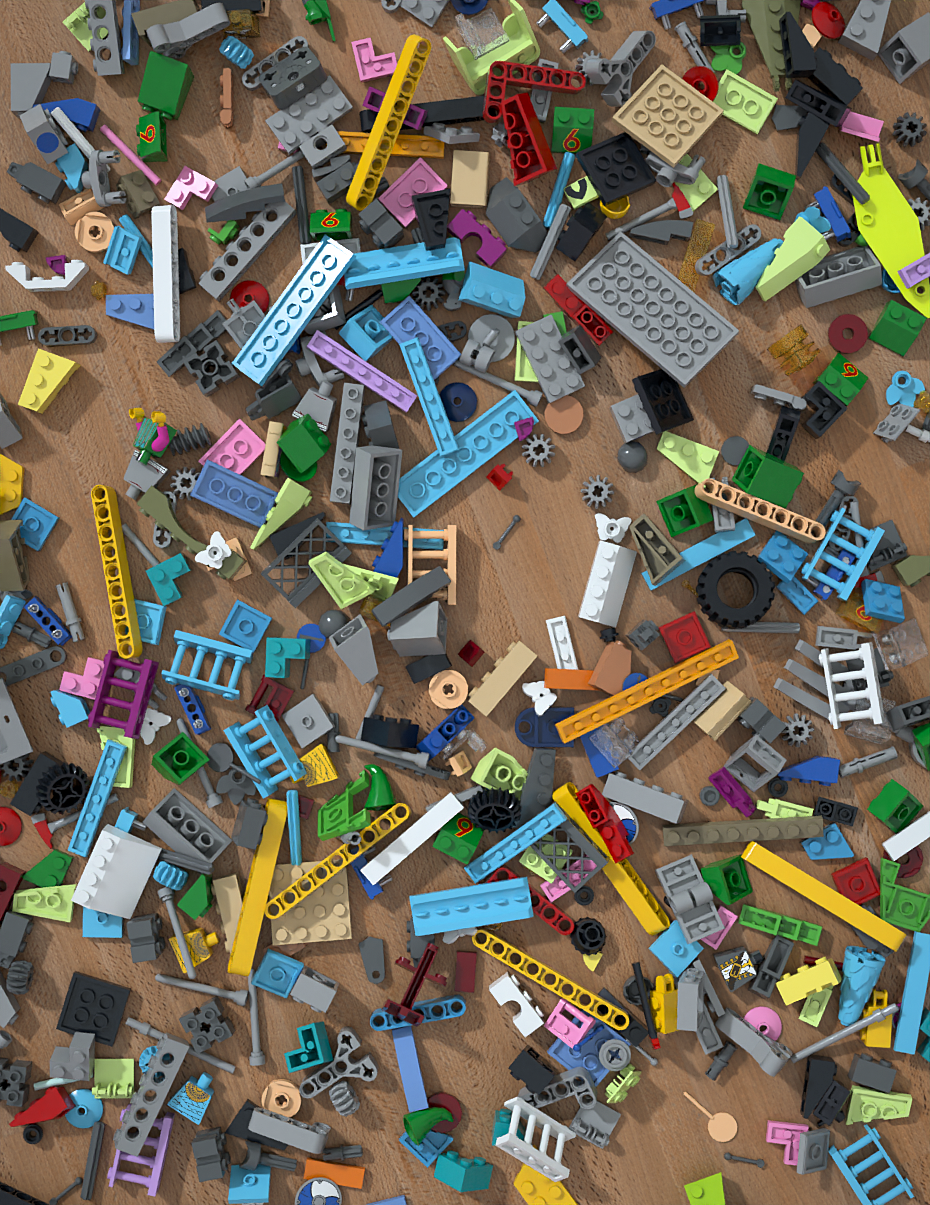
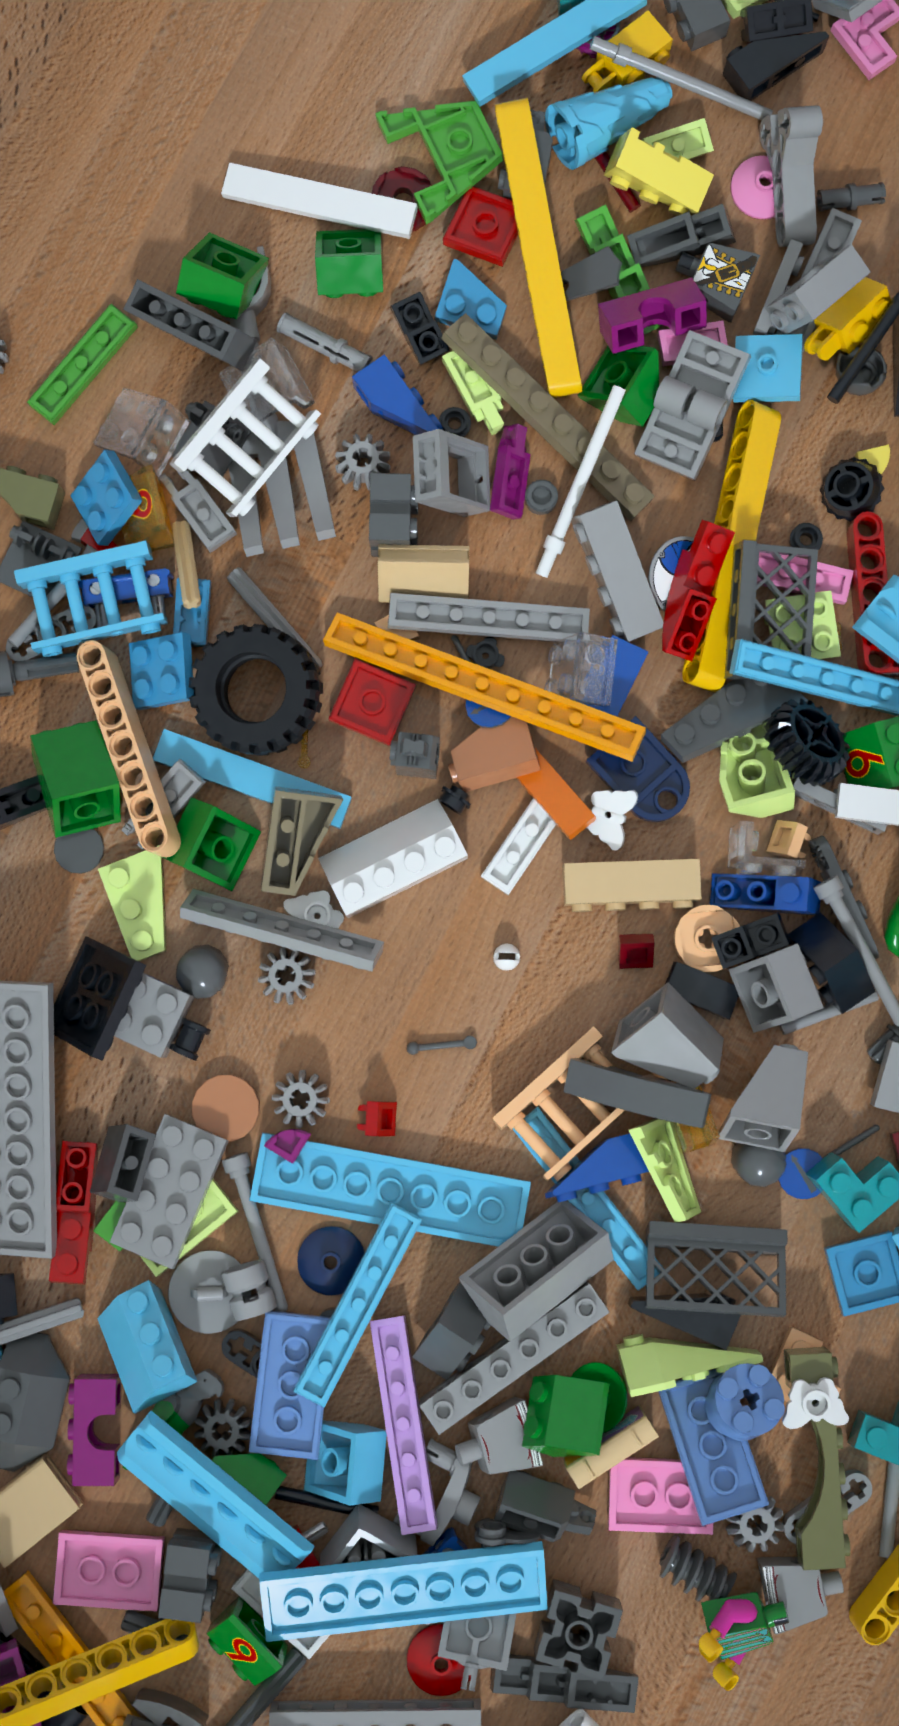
camera: 130 degrees left, 5 degrees down
(244, 534) = (763, 1396): none -> medium blue brick
(337, 182) = (184, 1686): dark grey hinge -> none
(339, 580) = (700, 1204): yellowish green wing -> none
(401, 697) = (776, 988): none -> light grey brick
(430, 706) = (751, 940): none -> black slope
(432, 217) = (118, 1516): black wing -> none
(516, 591) = (506, 964): none -> white hinge
(607, 425) = (190, 1039): none -> black bush
(619, 507) = (282, 930): none -> light grey plate
(683, 782) = (554, 544): none -> white bar
(742, 932) = (674, 305): none -> magenta arch
(790, 909) = (592, 274): none -> dark grey piece
(820, 610) = (186, 564): none -> tan axle

